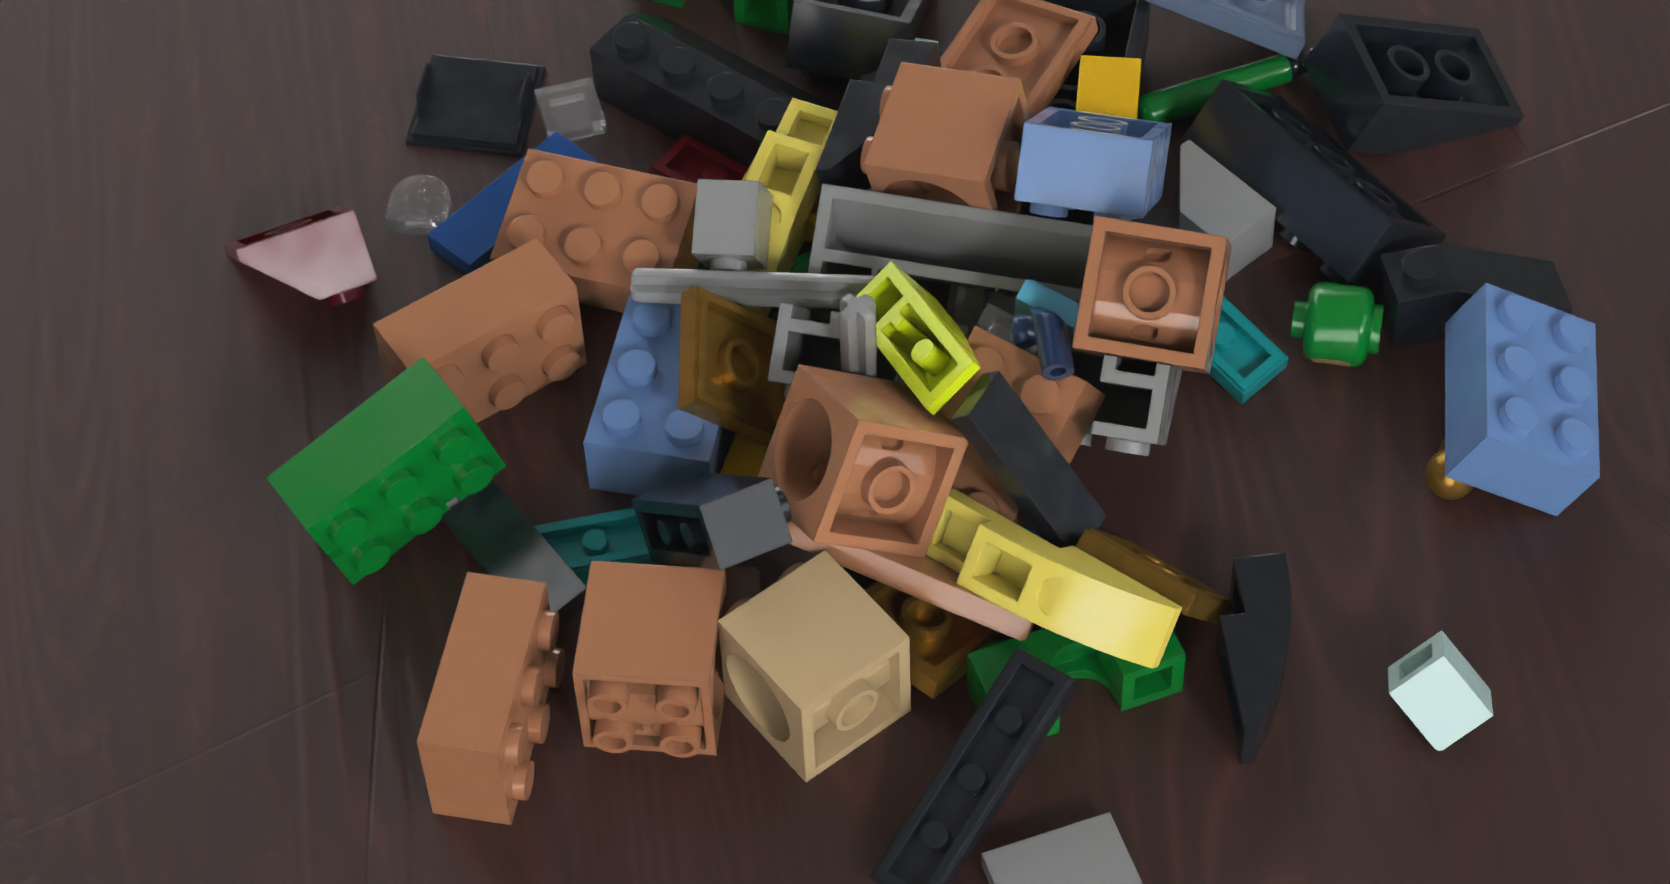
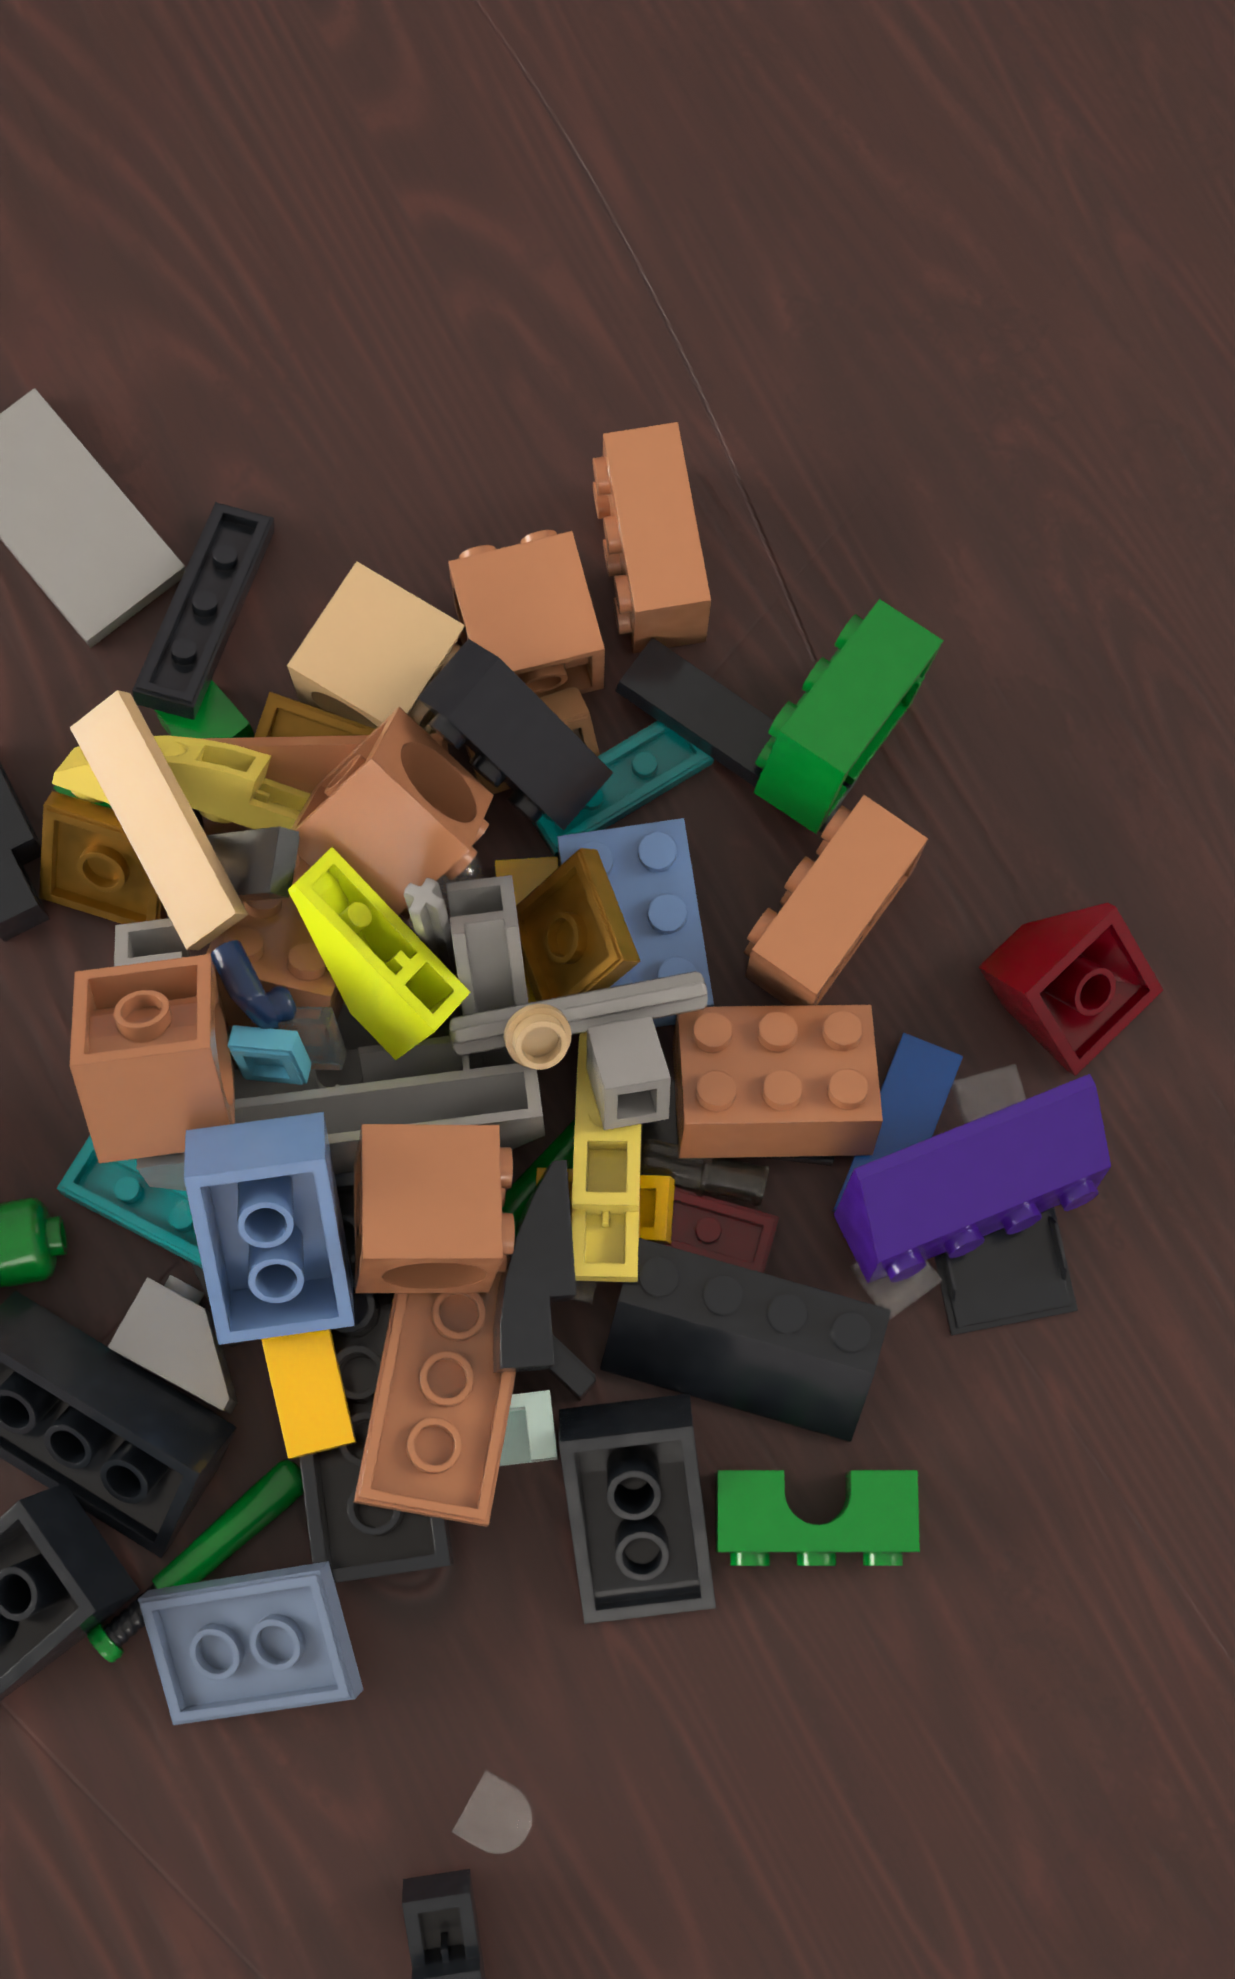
camera: 155 degrees right, 25 degrees up
(472, 118) = (975, 1181): none -> dark purple slope
(800, 252) = (537, 1036): none -> tan plate
(1085, 502) = (158, 821): none -> tan tile

